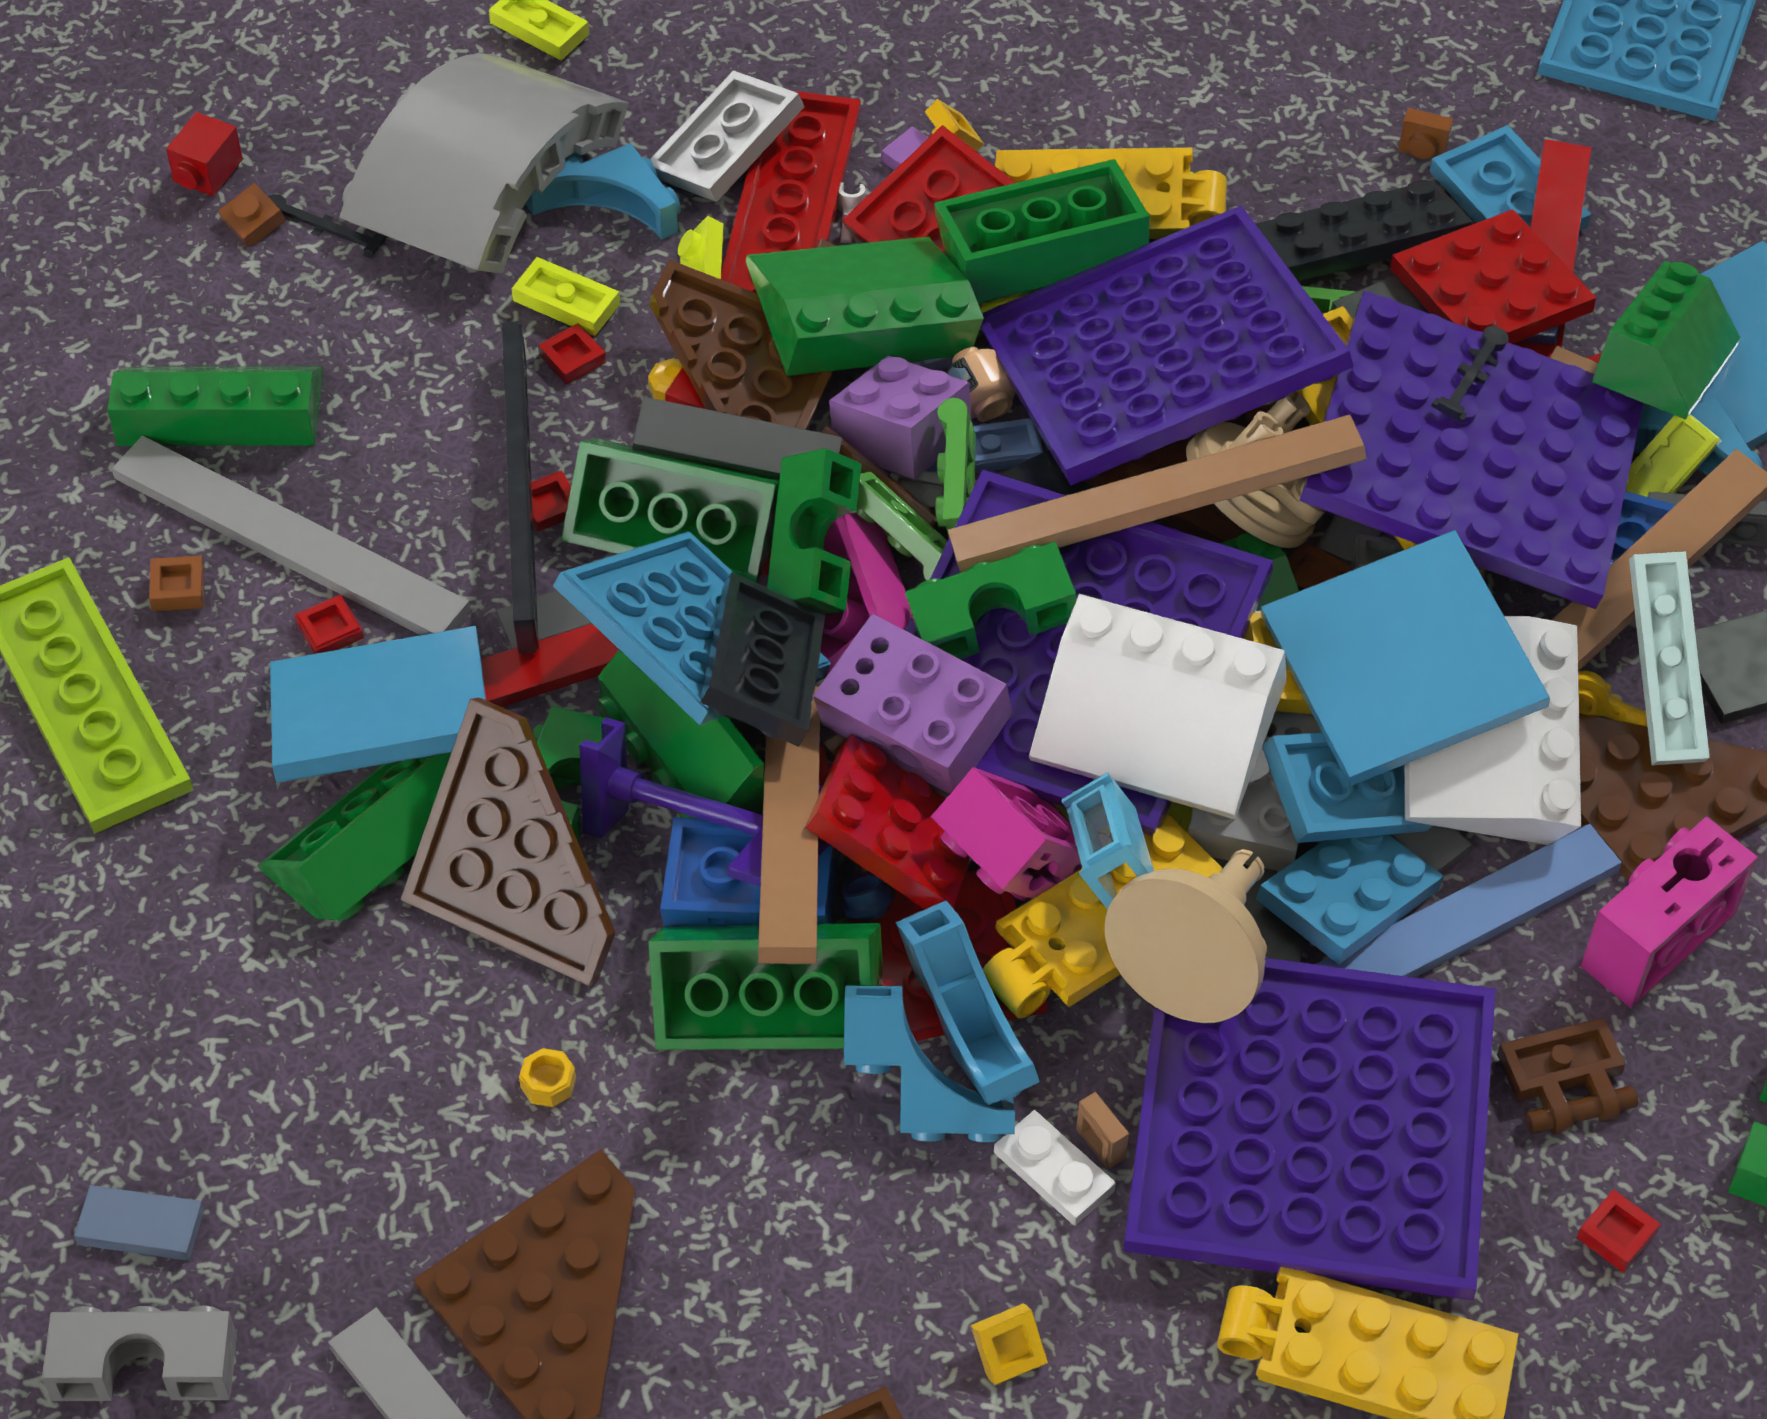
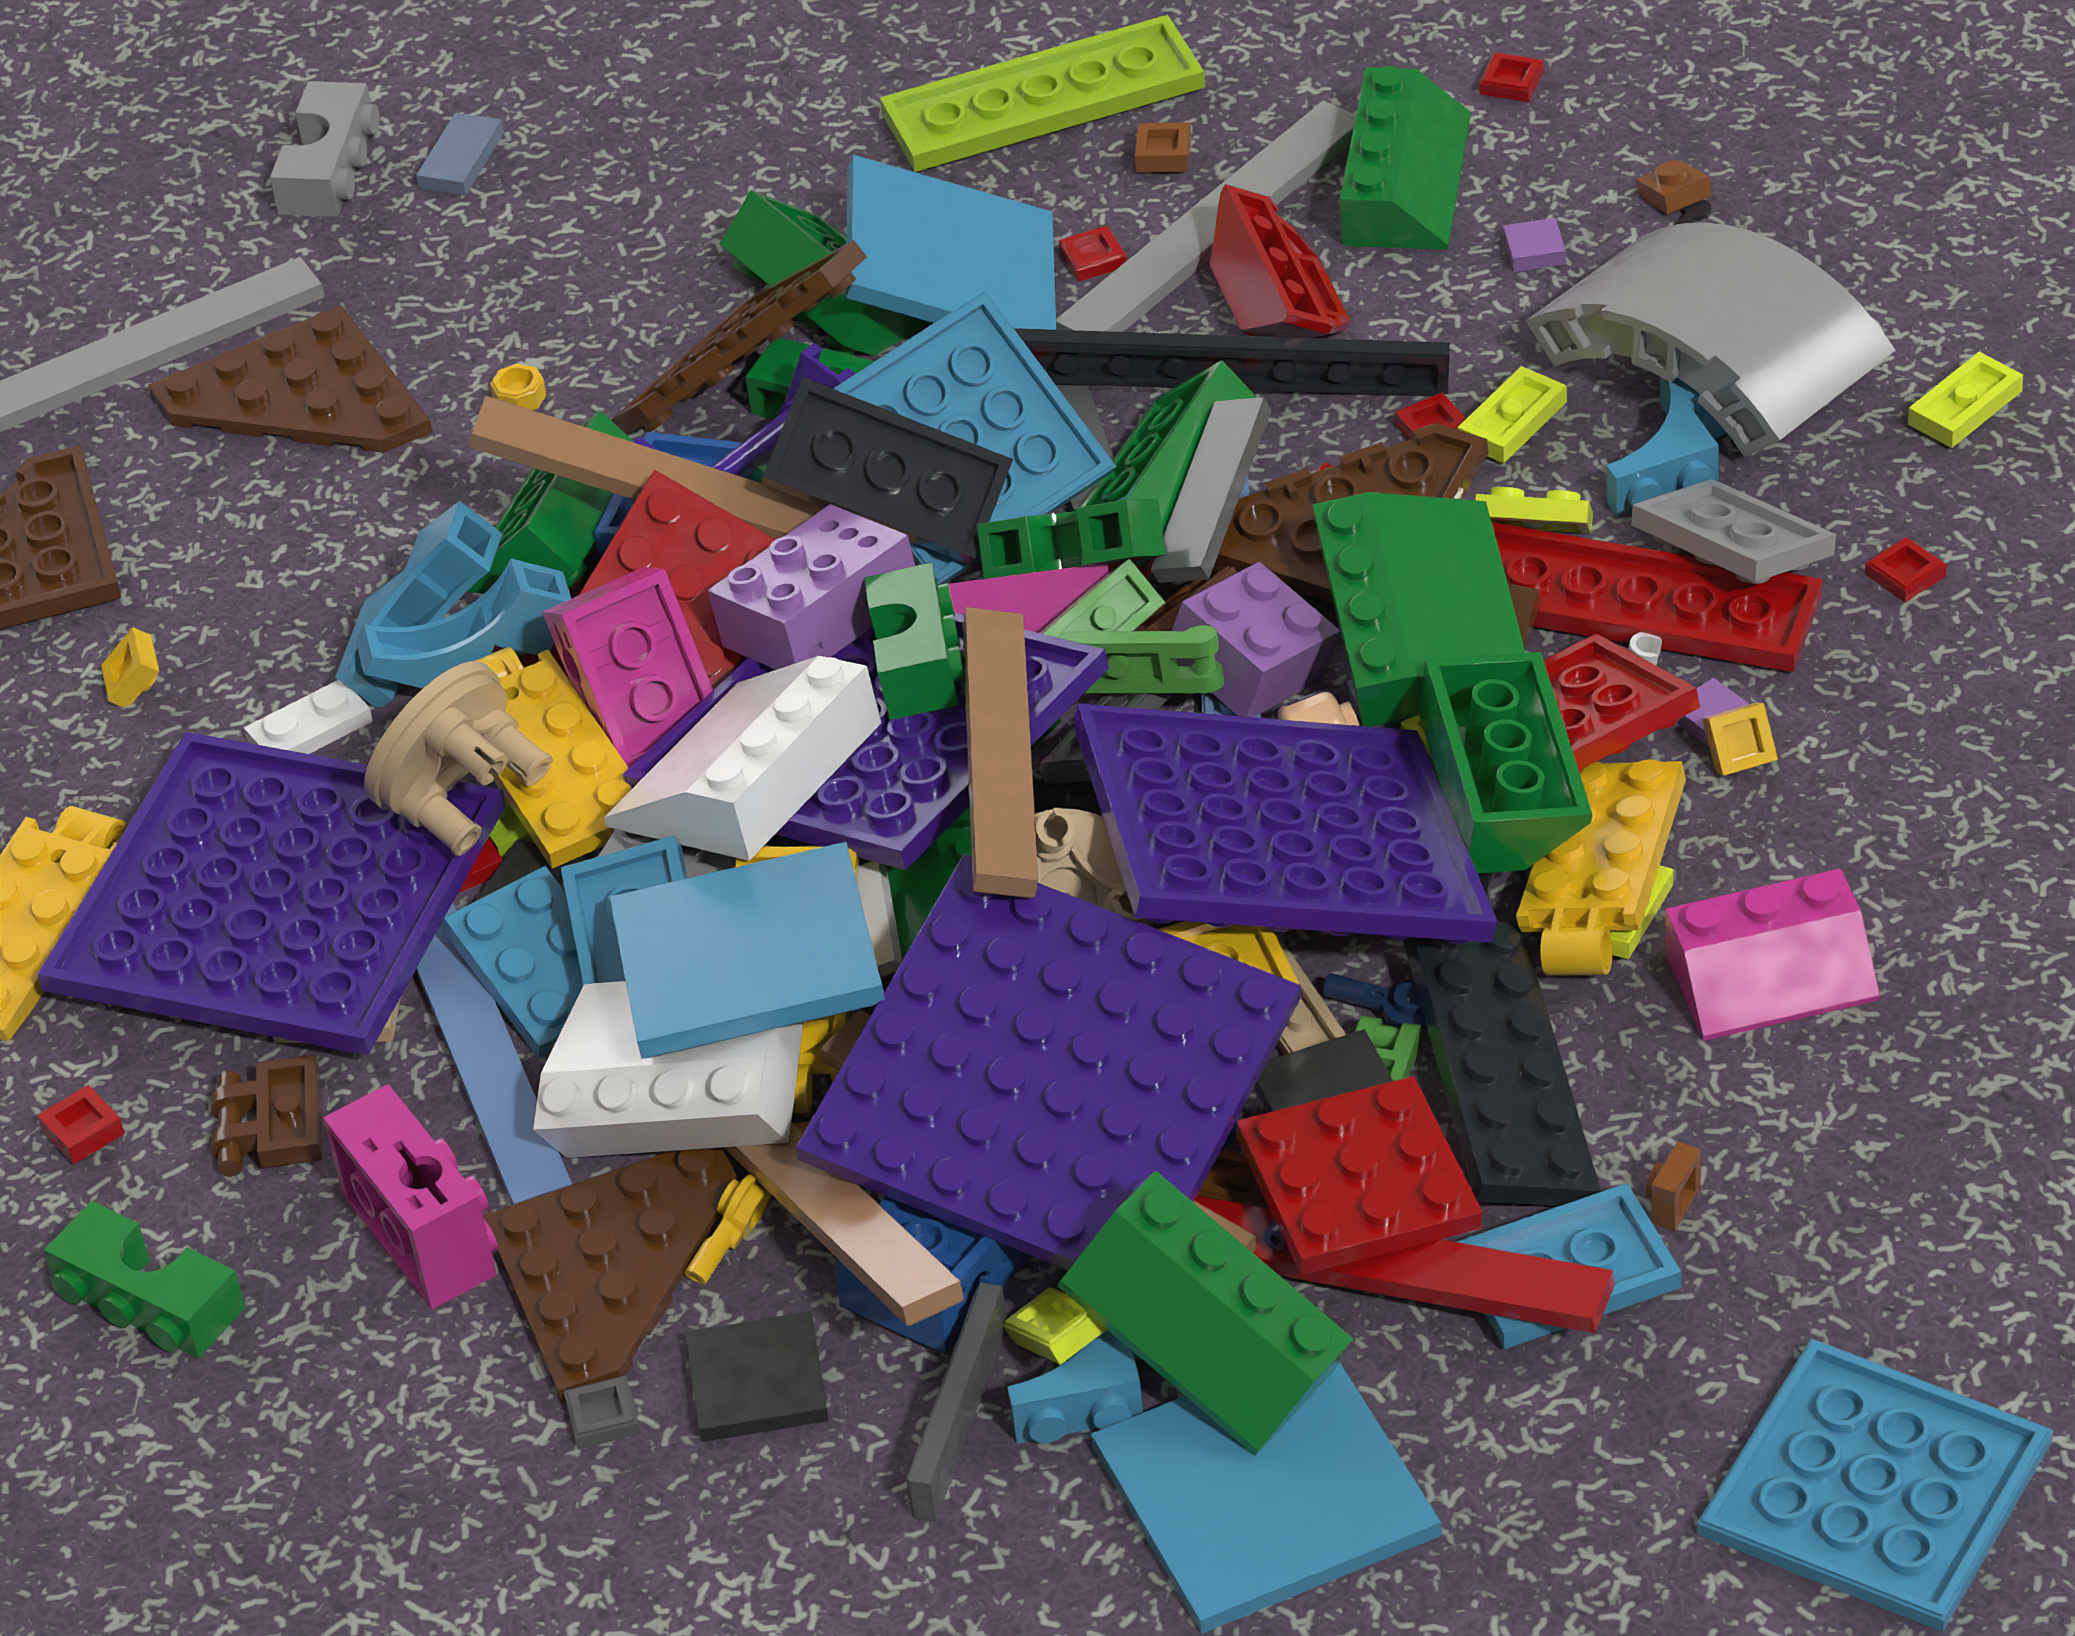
camera: 105 degrees right, 10 degrees down
(77, 341) = (1511, 77): none -> red tile
(204, 154) = (1753, 137): red brick -> none
(326, 305) = (1534, 244): none -> medium lavender tile
(404, 466) = (1271, 271): none -> red wedge
(736, 52) = (1905, 569): none -> red tile
(1102, 1130) = (328, 739): medium nougat tile -> none
(1106, 834) = (588, 706): medium azure window -> none
(1180, 97) = (1770, 954): none -> slope
(1492, 340) = (1204, 1100): black piece -> none
(1669, 658) = (722, 1225): light aqua plate -> none

